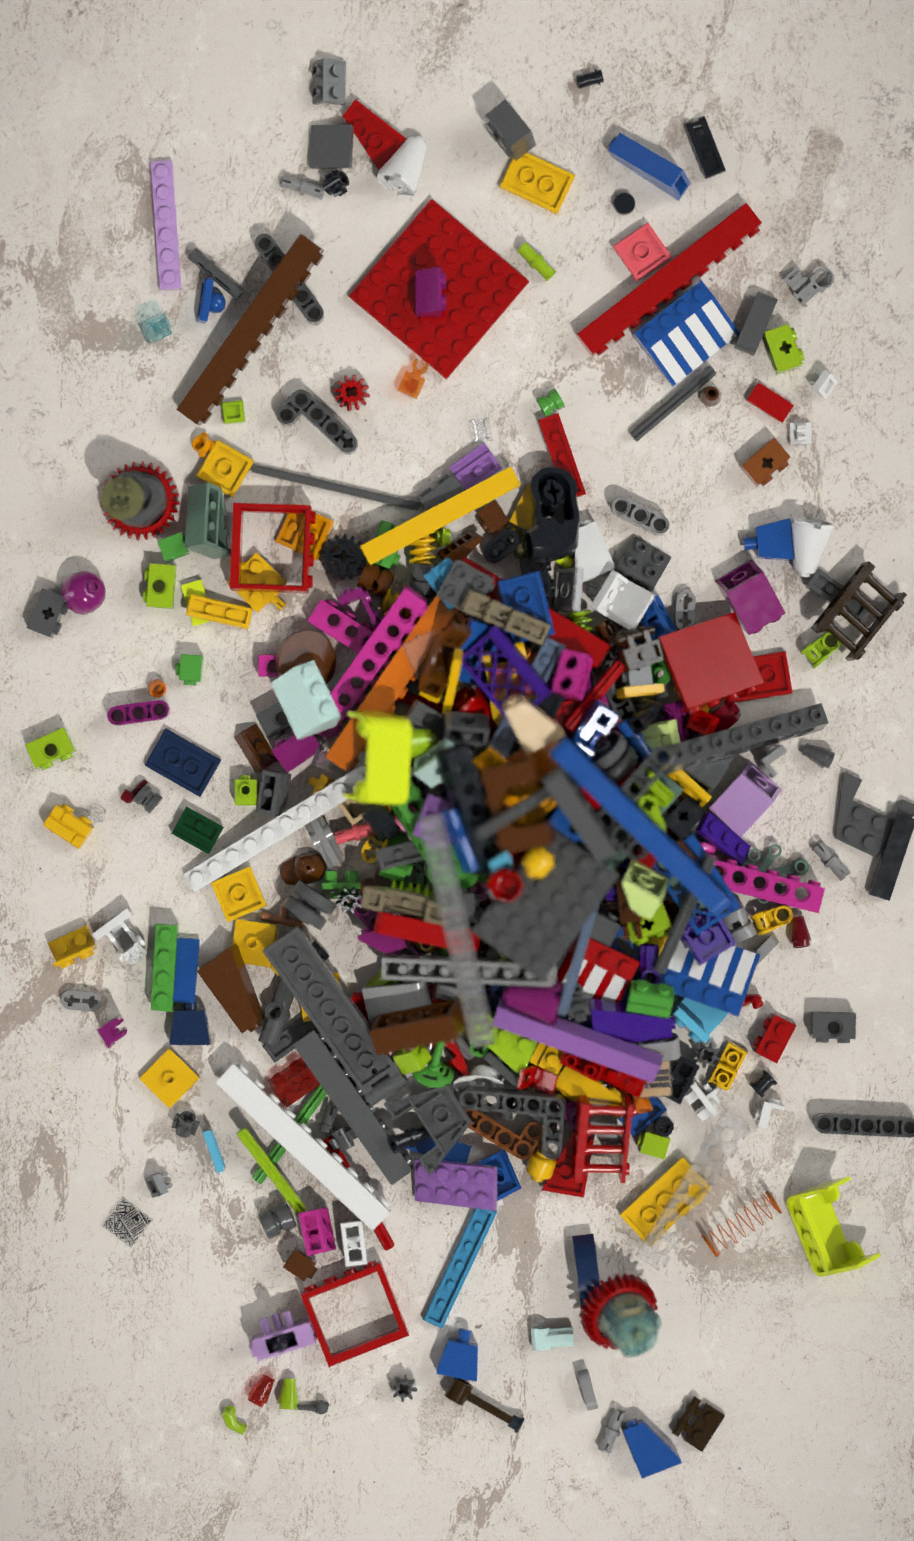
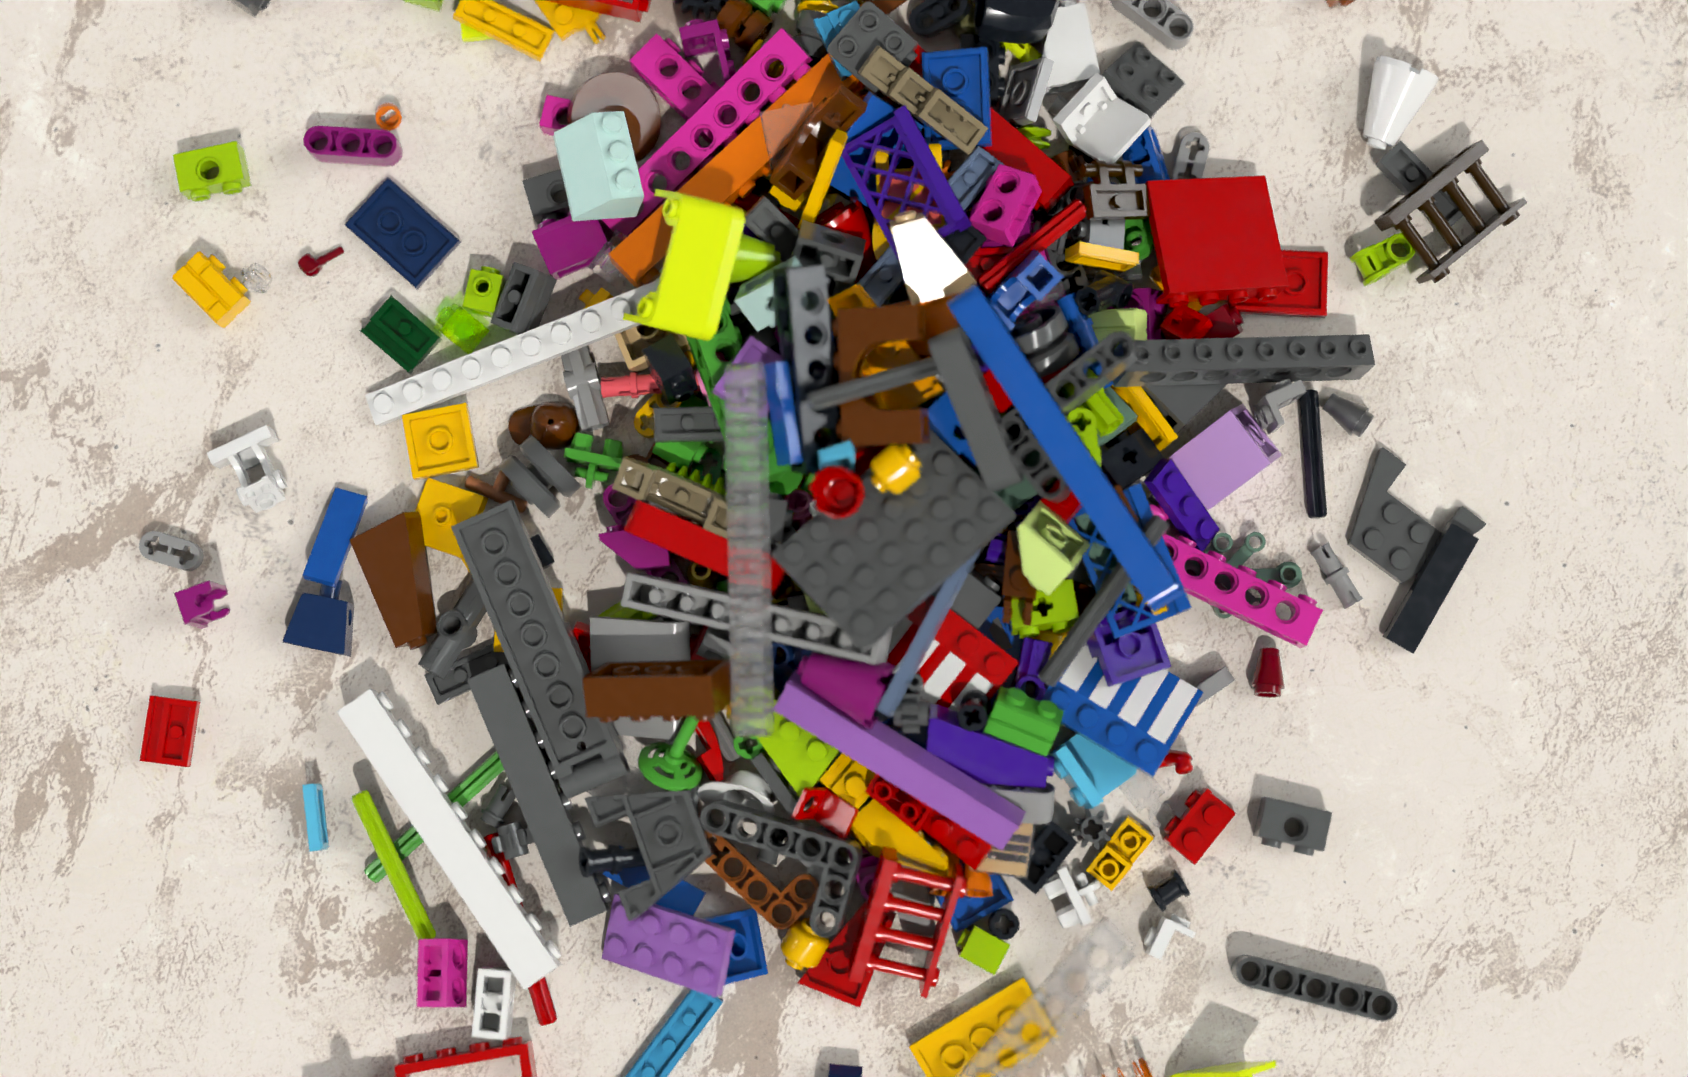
camera: 15 degrees right, 5 degrees down
(71, 946) = (175, 468): yellow bracket -> none
(108, 1115) = (170, 731): none -> red plate
(127, 1222) = (161, 899): clear piece -> none
(151, 801) = (337, 273): dark grey wheel -> none
(156, 1184) = (217, 850): tile -> none
(164, 967) = (302, 524): bright green brick -> none
(169, 1078) = (275, 694): yellow plate -> none
(185, 1124) = (281, 768): dark grey gear -> none
(190, 669) = (443, 98): bright green brick -> none
(235, 817) = (460, 327): none -> clear neon green bracket
(255, 748) = (513, 233): reddish brown slope -> none
(276, 1220) = (386, 943): dark grey wheel -> none
(293, 1082) = (457, 740): clear red bracket -> none
(300, 1265) = (405, 1020): reddish brown brick -> none
(345, 905) = (593, 485): black gear -> none
(412, 1060) = (642, 738): lime brick -> none
(620, 1000) = (970, 702): none -> black bush
(743, 931) = (1186, 652): light grey wheel -> none
(750, 597) = (1294, 160): magenta slope -> none
(770, 919) = (1228, 643): yellow piece -> none
(772, 541) = (1339, 88): blue torso -> none
(801, 785) = (1313, 455): none -> black axle

